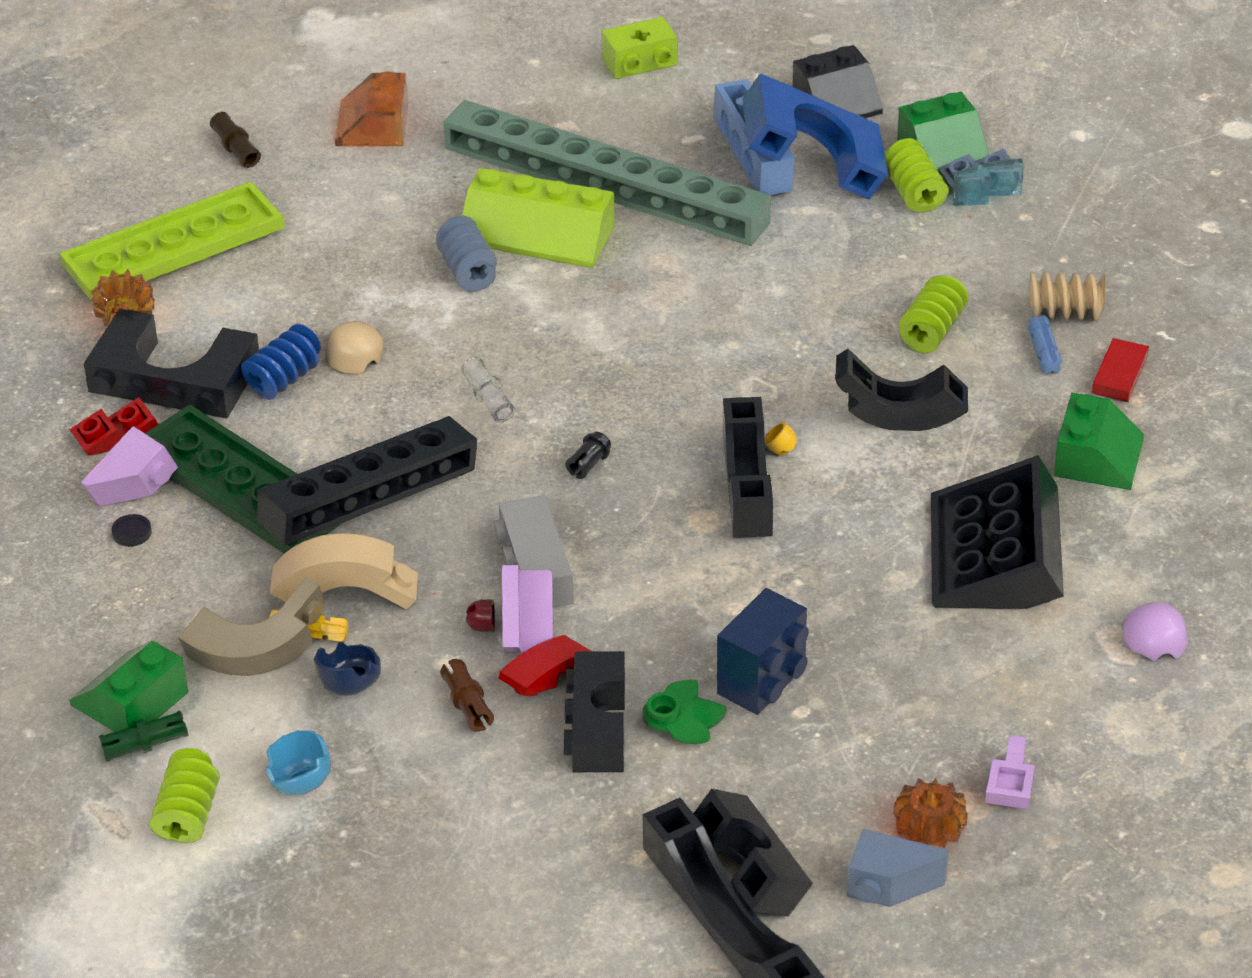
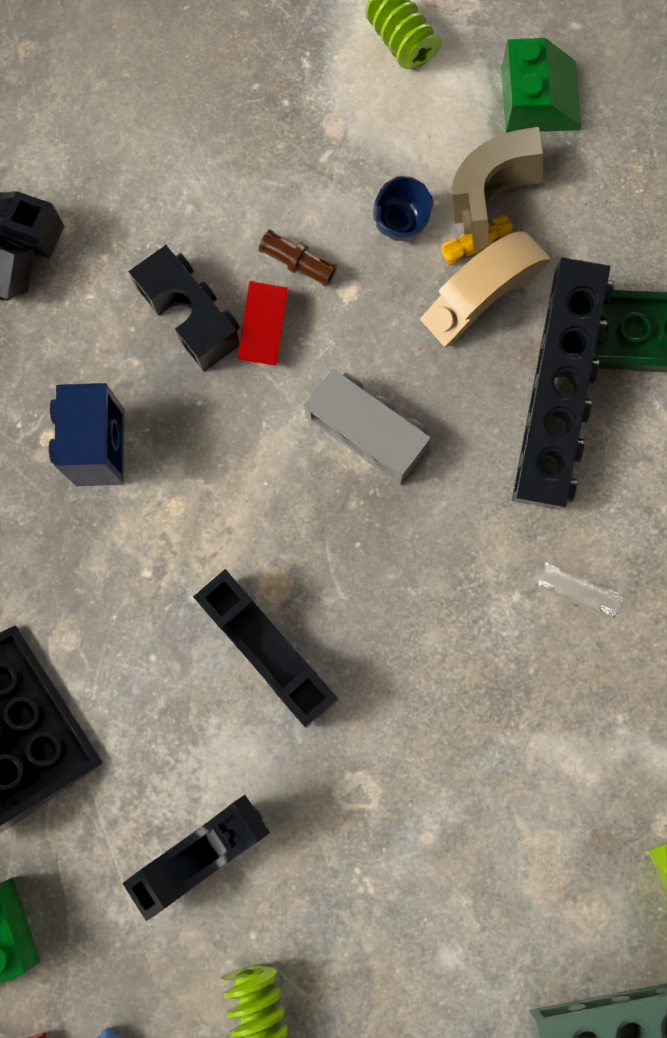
camera: 145 degrees right, 35 degrees up
(143, 735) = (487, 63): dark green pin -> none
(298, 762) = (353, 106): dark azure hair -> none
(481, 615) = (354, 338): dark red hinge -> none
(526, 608) = (319, 349): lavender panel -> none
(594, 447) = (425, 581): black pin -> none
(683, 713) = (122, 366): green plate -> none
(781, 439) = (277, 724): yellow hinge -> none

